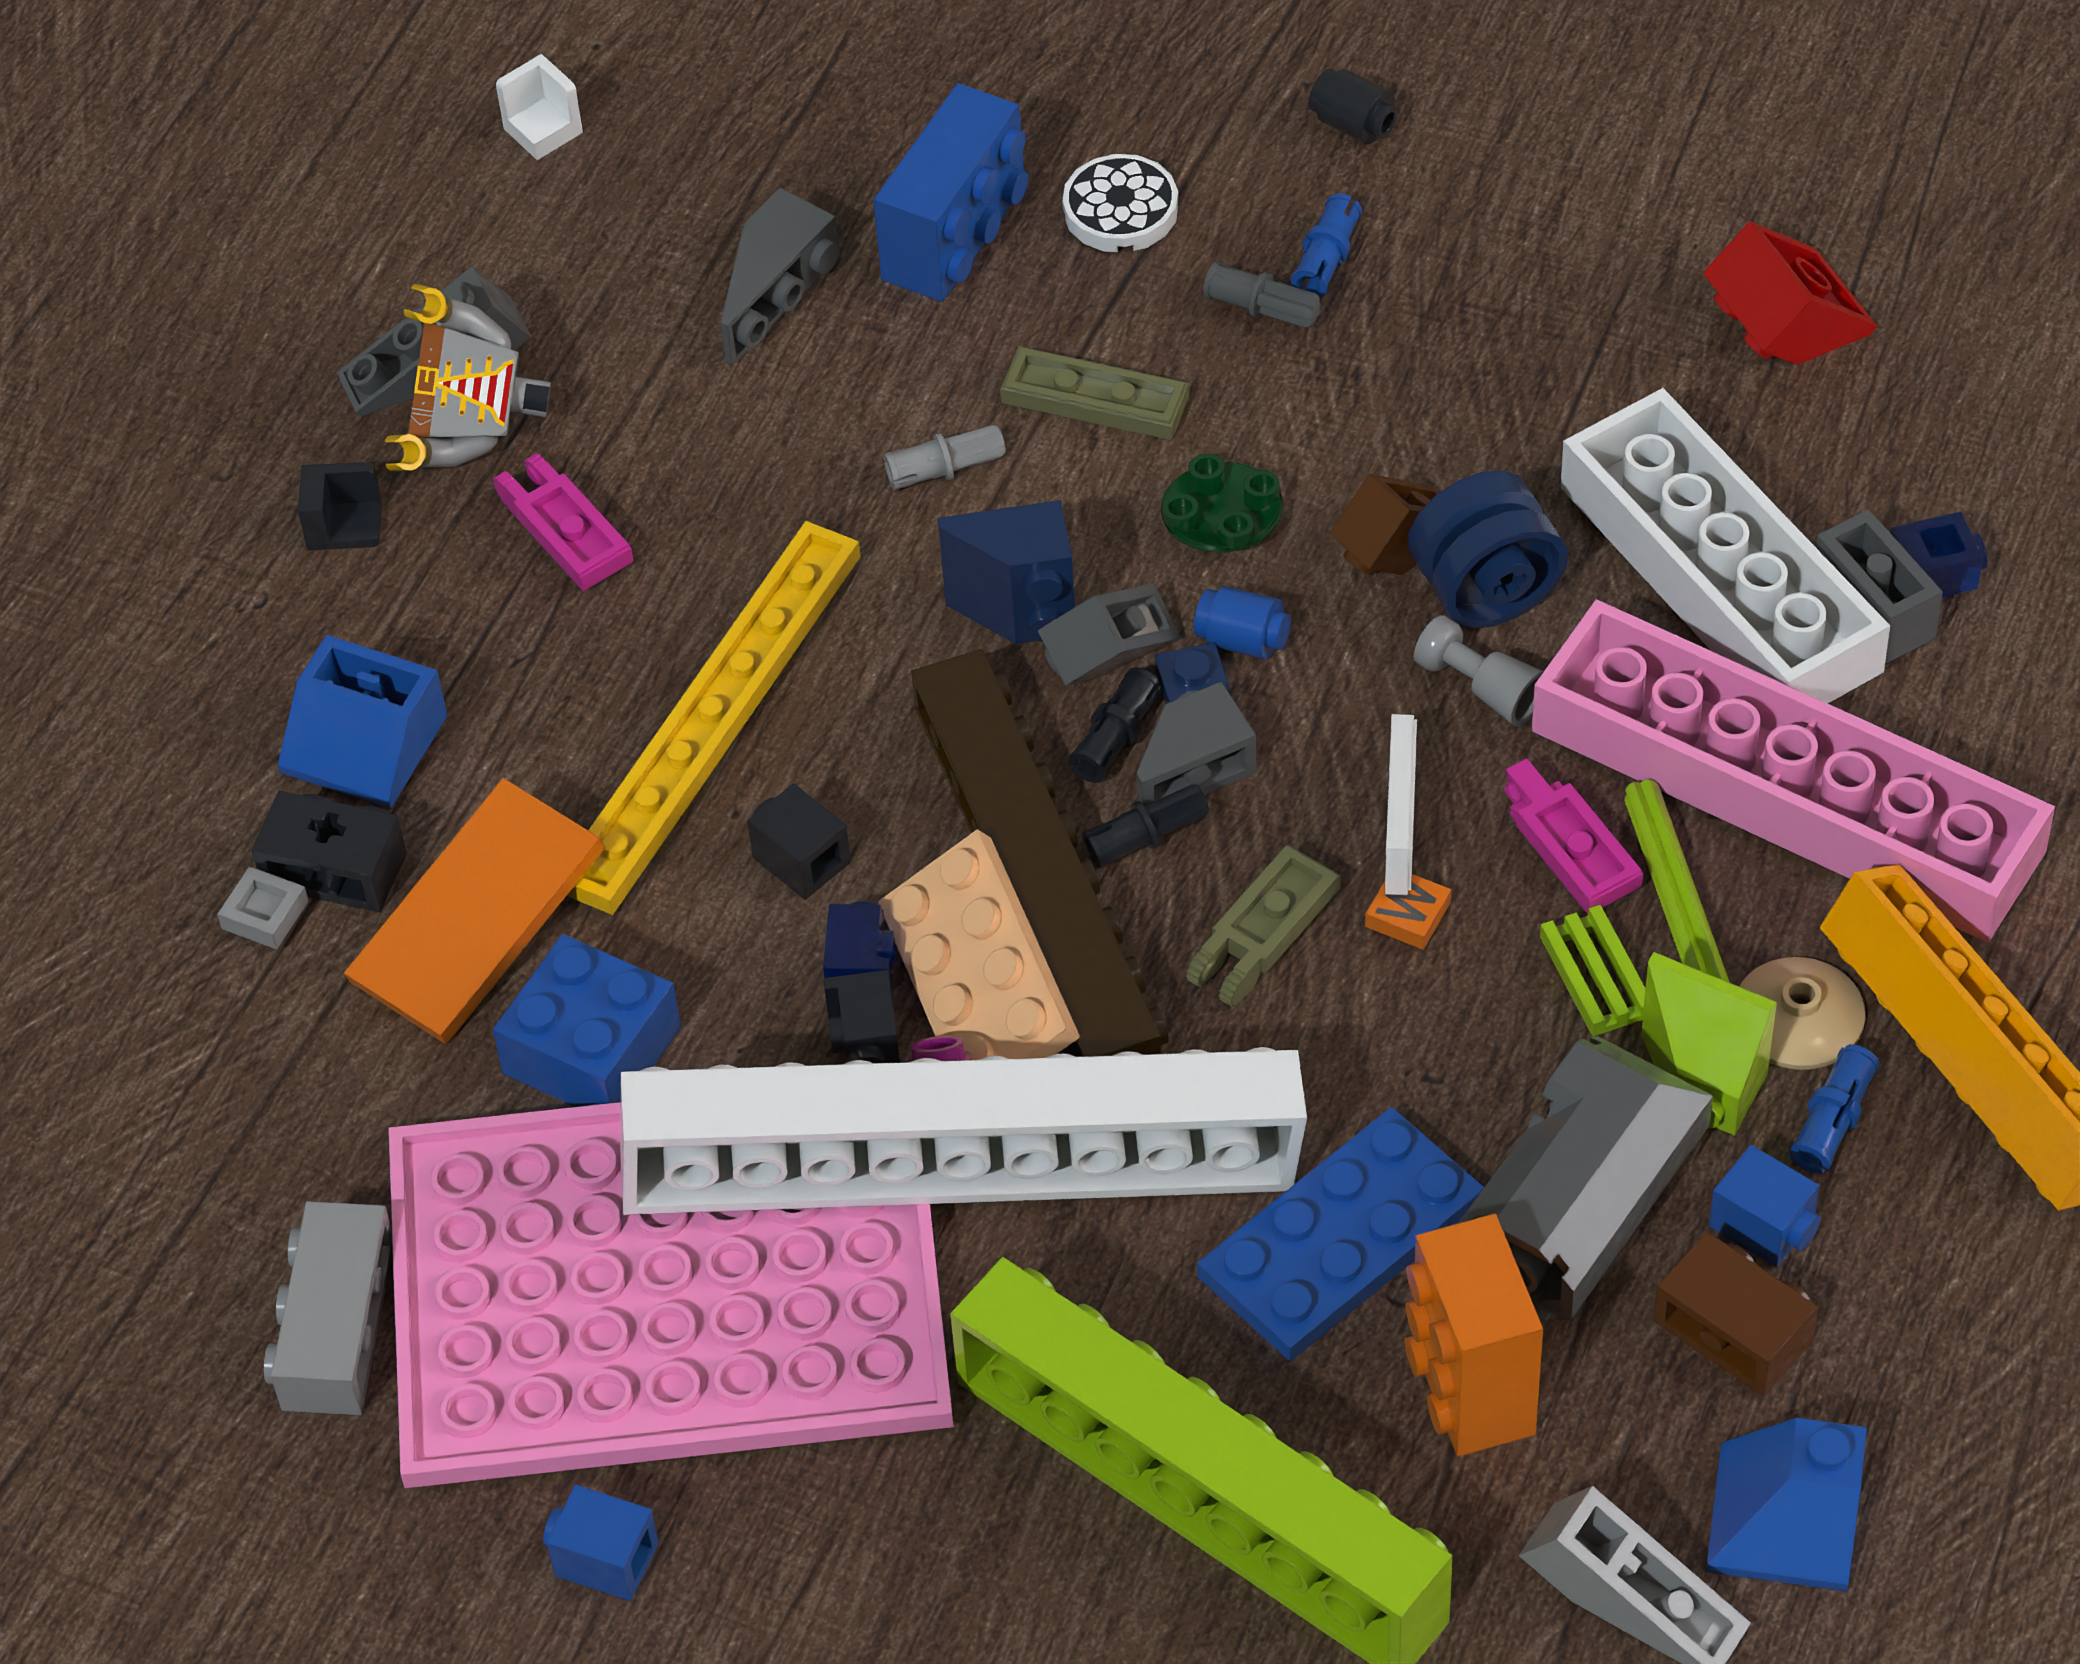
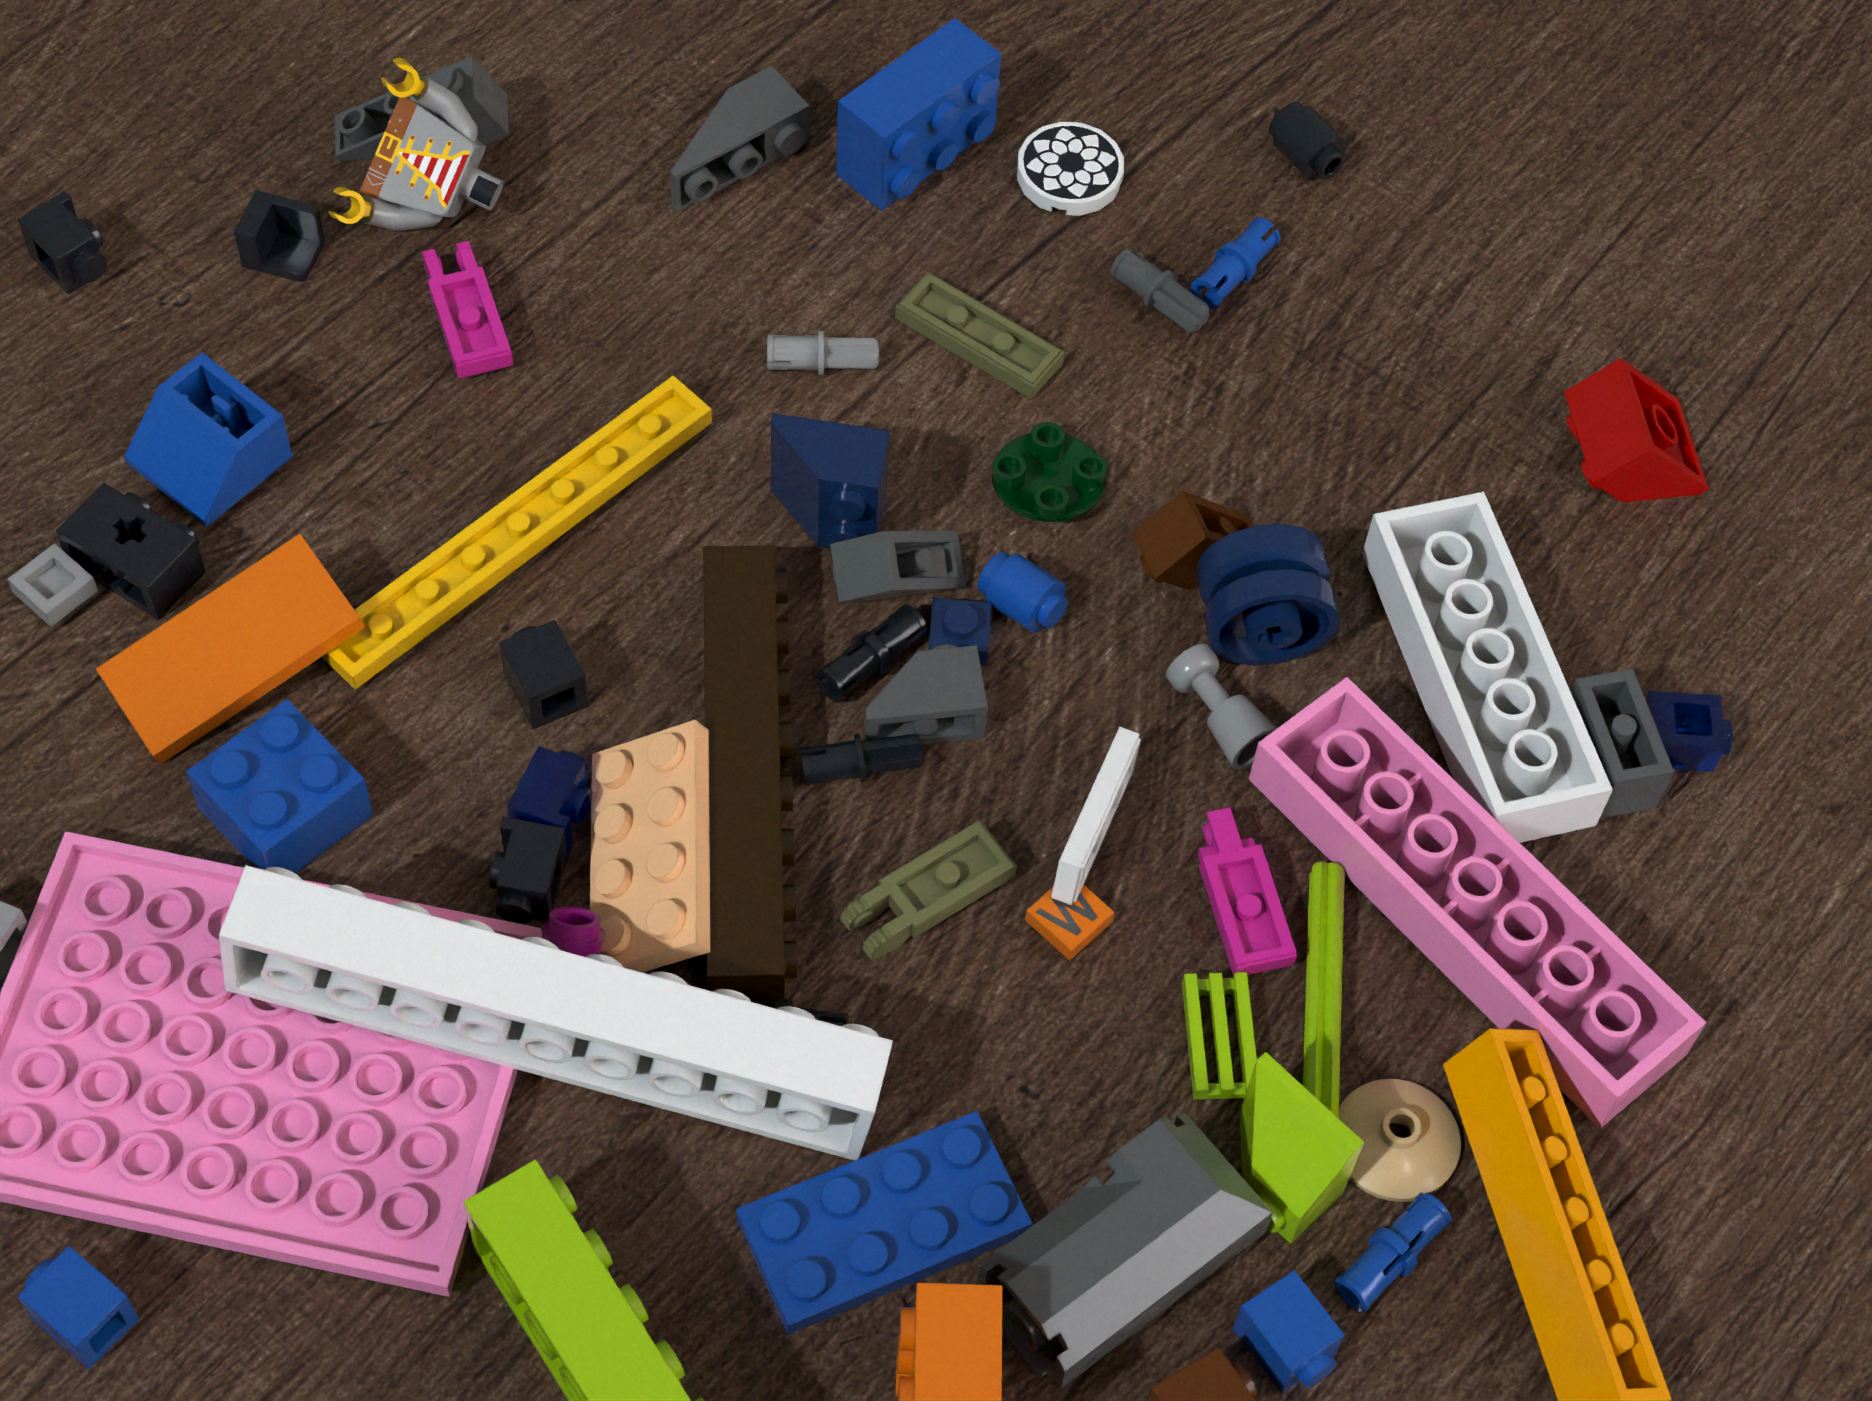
camera: 10 degrees right, 5 degrees up
(118, 580) = (63, 244): none -> black brick

